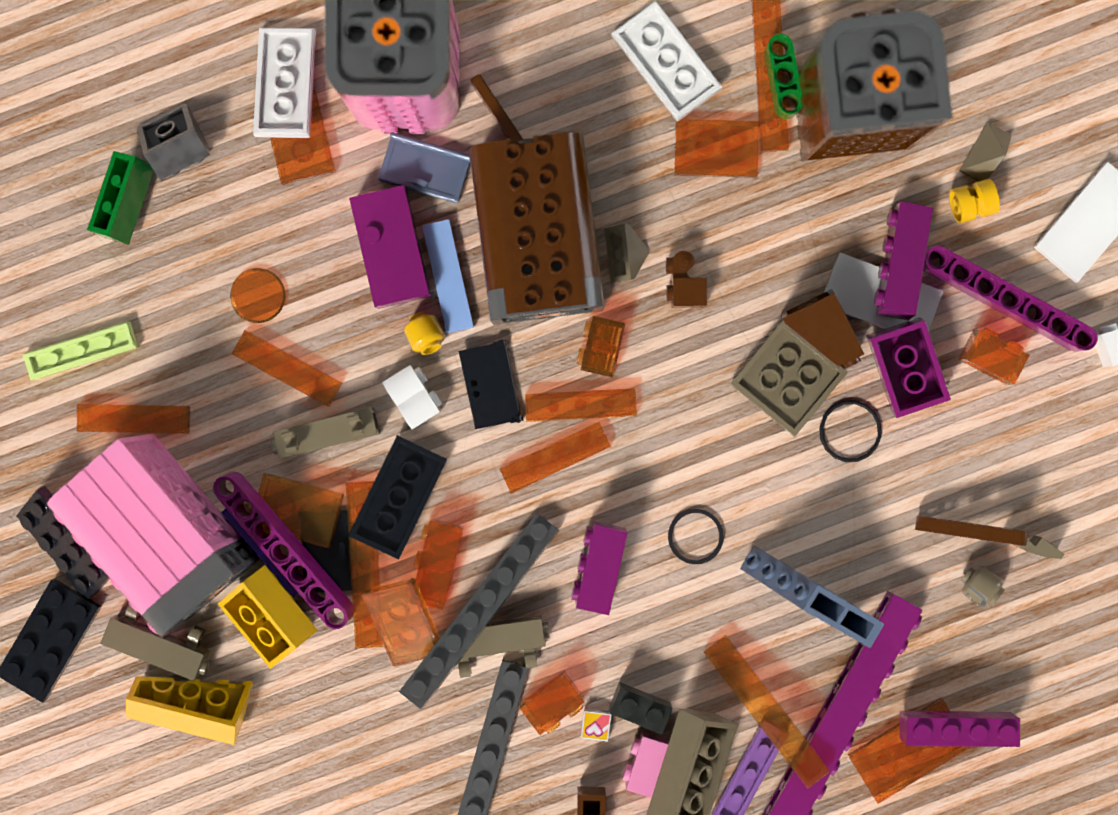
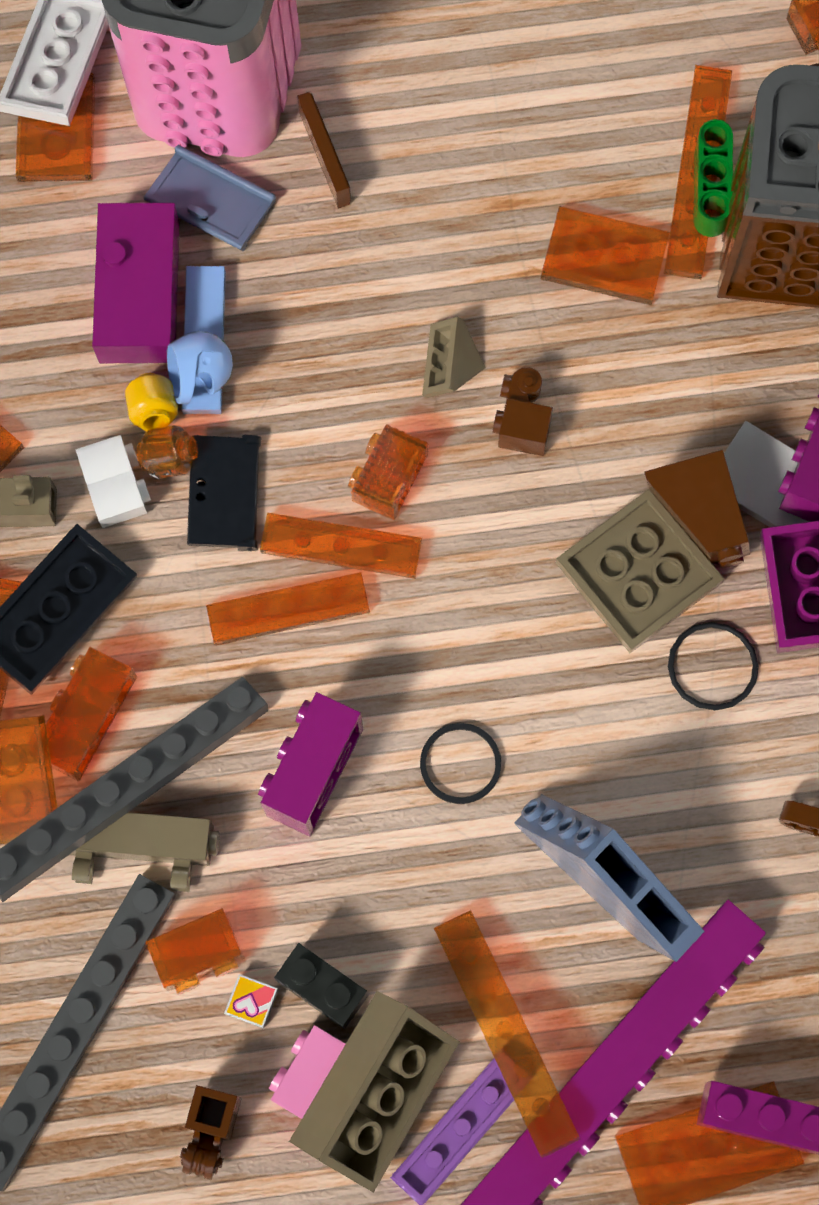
camera: 15 degrees right, 15 degrees down
(445, 368) = (166, 452): none -> clear orange head
(450, 299) = (198, 356): none -> light blue helmet
(536, 227) = (335, 289): reddish brown piece -> none
(666, 61) = (562, 133): white tile -> none

